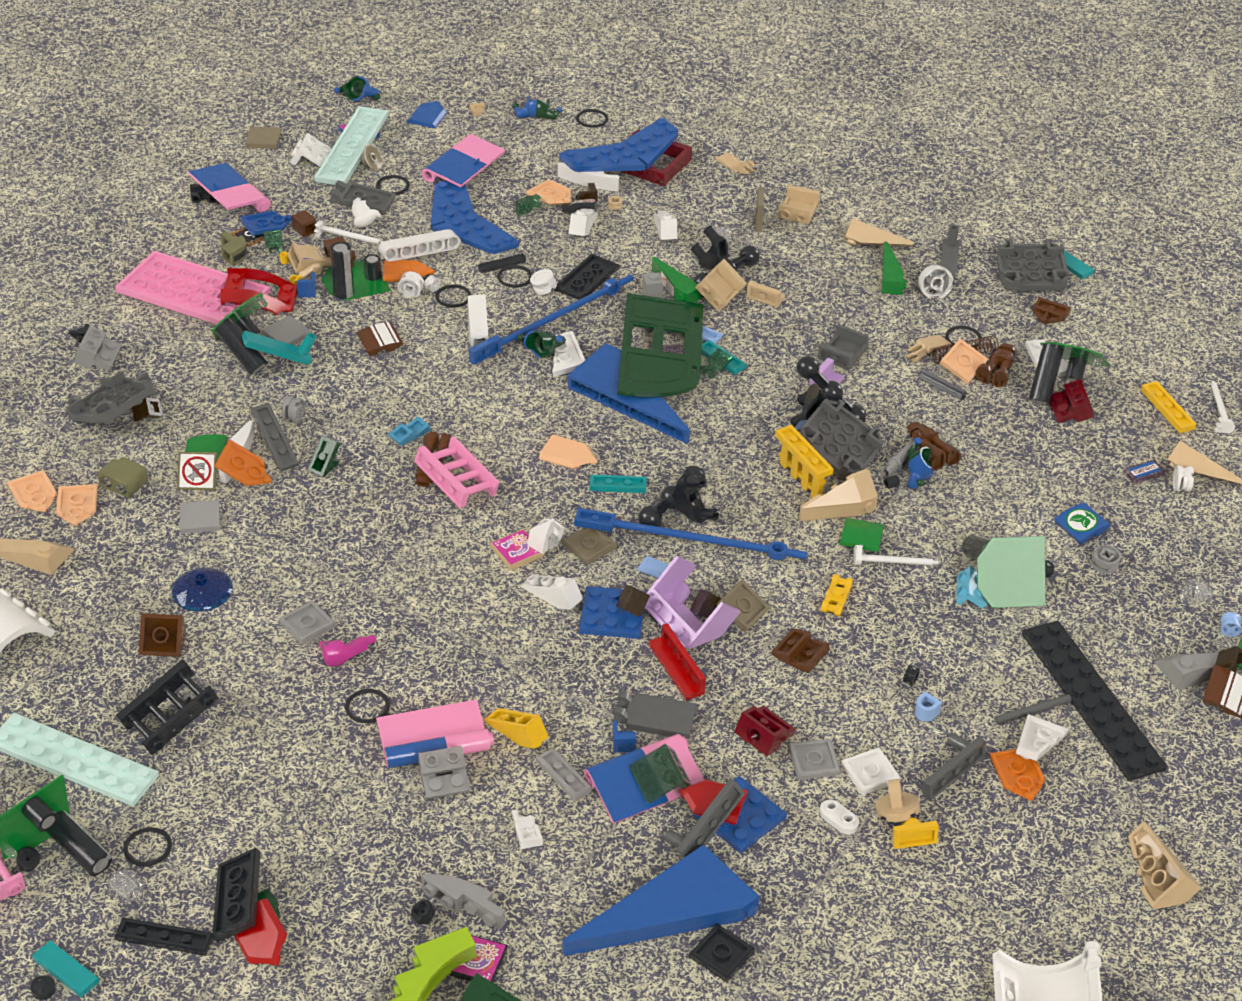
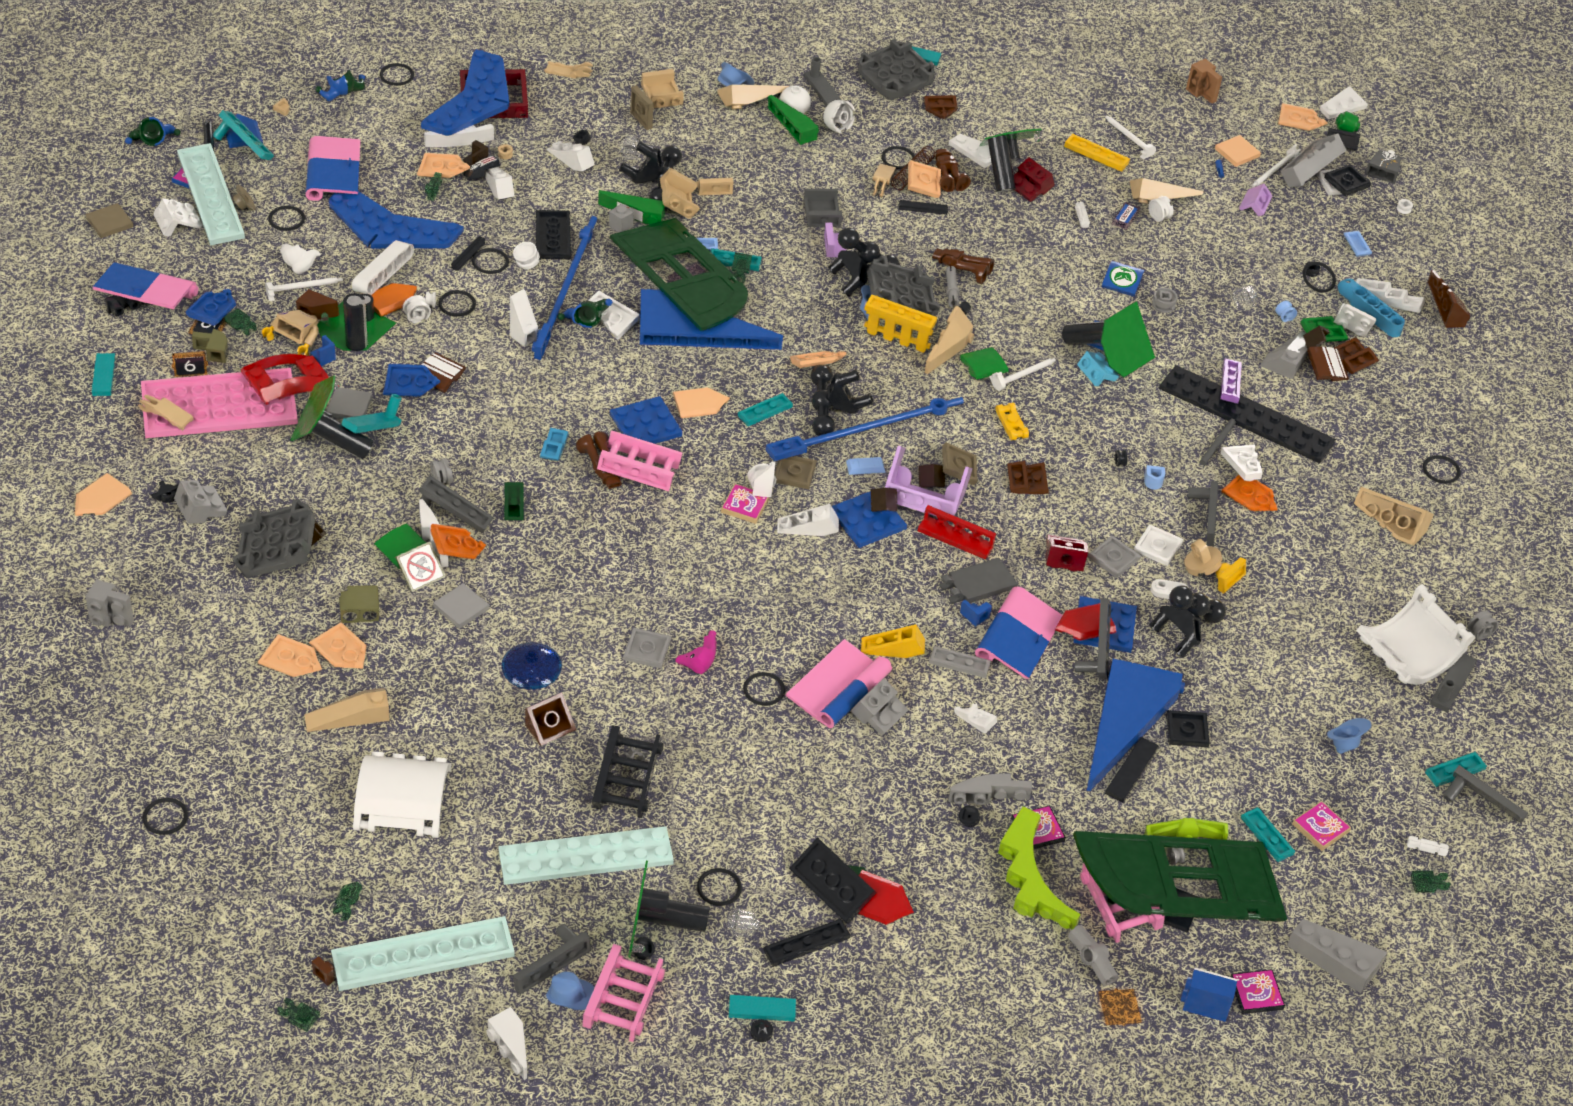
camera: 40 degrees left, 5 degrees up
(39, 317) = (101, 496): none -> light nougat tile
(138, 237) = (103, 374): none -> teal tile
(144, 278) = (167, 410): none -> tan arm
(198, 252) = (189, 364): none -> piece
(303, 223) = (252, 291): reddish brown brick -> none
(347, 333) = (409, 380): none -> blue tile
(374, 197) = (269, 241): dark grey tile -> none
(397, 109) = (208, 133): none -> black axle
(420, 114) = (231, 121): none -> teal piece
(504, 448) = (647, 421): none -> blue plate
(624, 958) = (1131, 769): none -> black tile
(659, 773) = (1034, 623): clear green bracket -> none
(690, 215) = (582, 137): none -> black tile
(705, 462) = (816, 358): none -> light nougat tile
(815, 840) = (1185, 614): none -> black connector
(869, 216) = (734, 76): none -> medium blue piece
(911, 256) = (796, 98): none -> white cylinder
(918, 465) = (975, 285): blue piece -> none
(1097, 453) = (1082, 215): none -> white axle
(1100, 659) = (1231, 381): none -> tile

